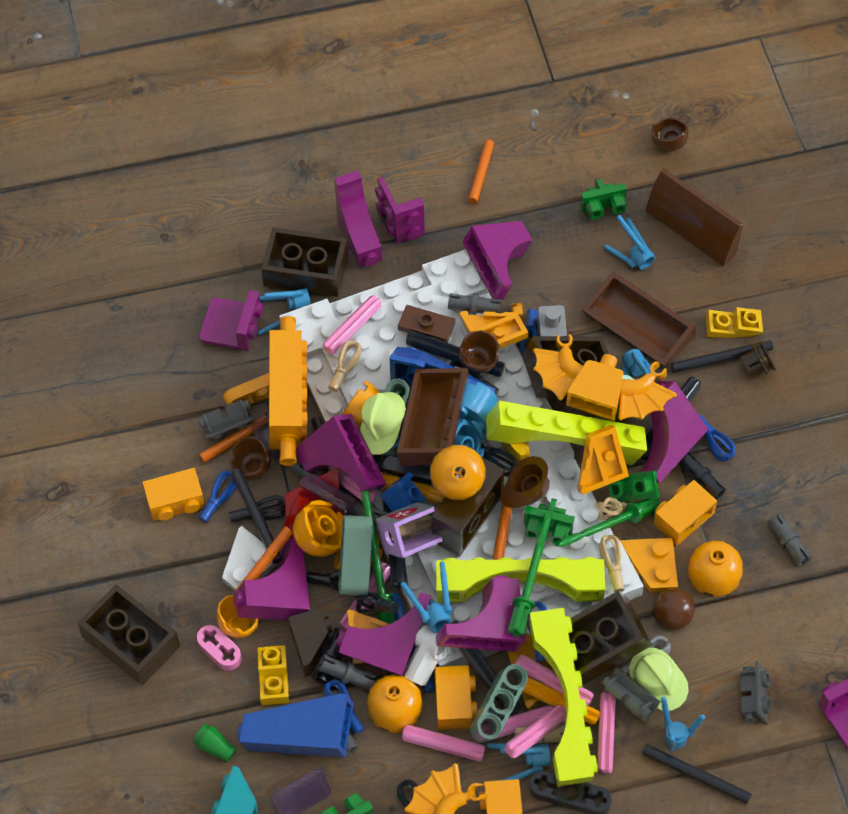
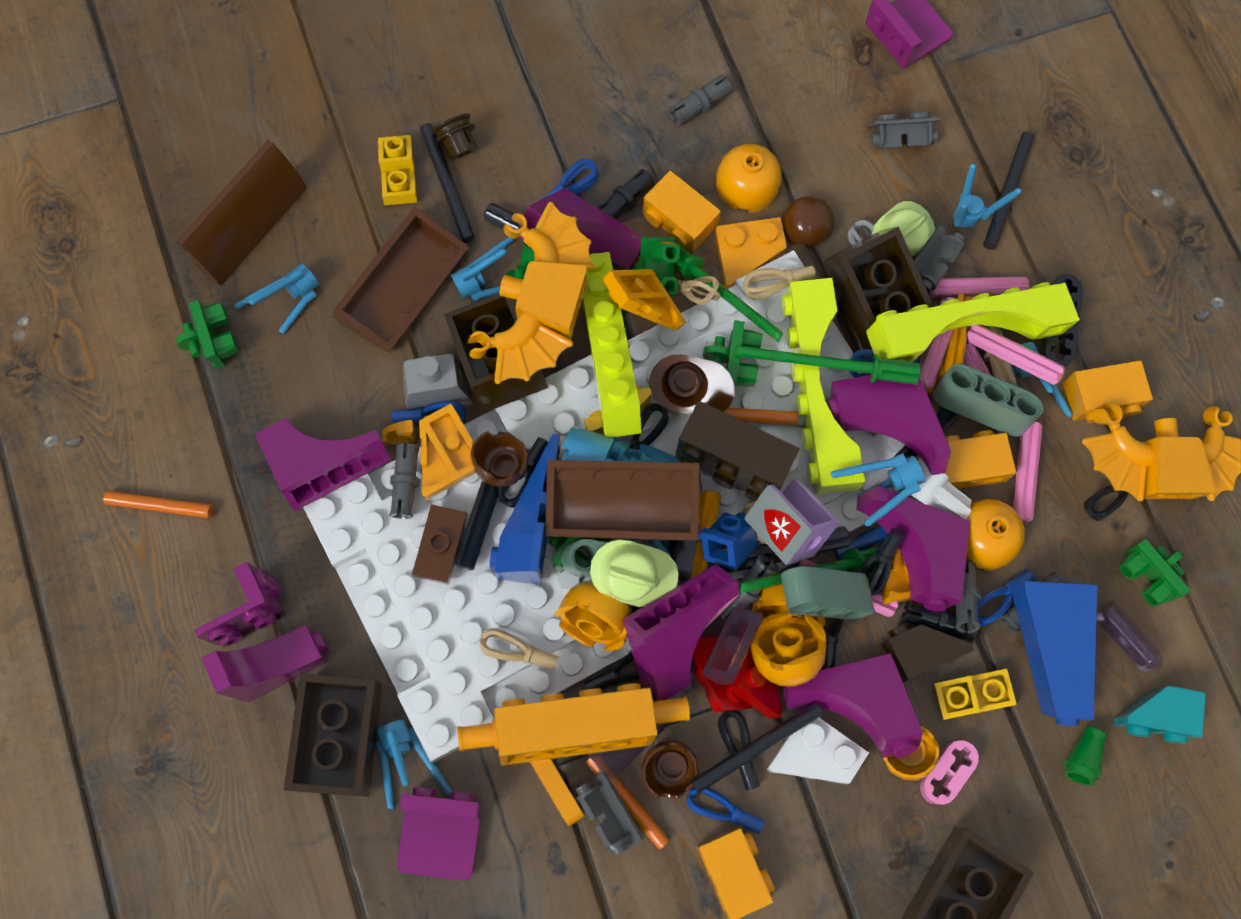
camera: 100 degrees left, 15 degrees up
(268, 555) = (830, 725): orange bar -> none
(351, 324) = (448, 648): bright pink axle -> none
(443, 472) = (729, 450): light orange cylinder -> none
(670, 134) = (98, 254): reddish brown hair -> none

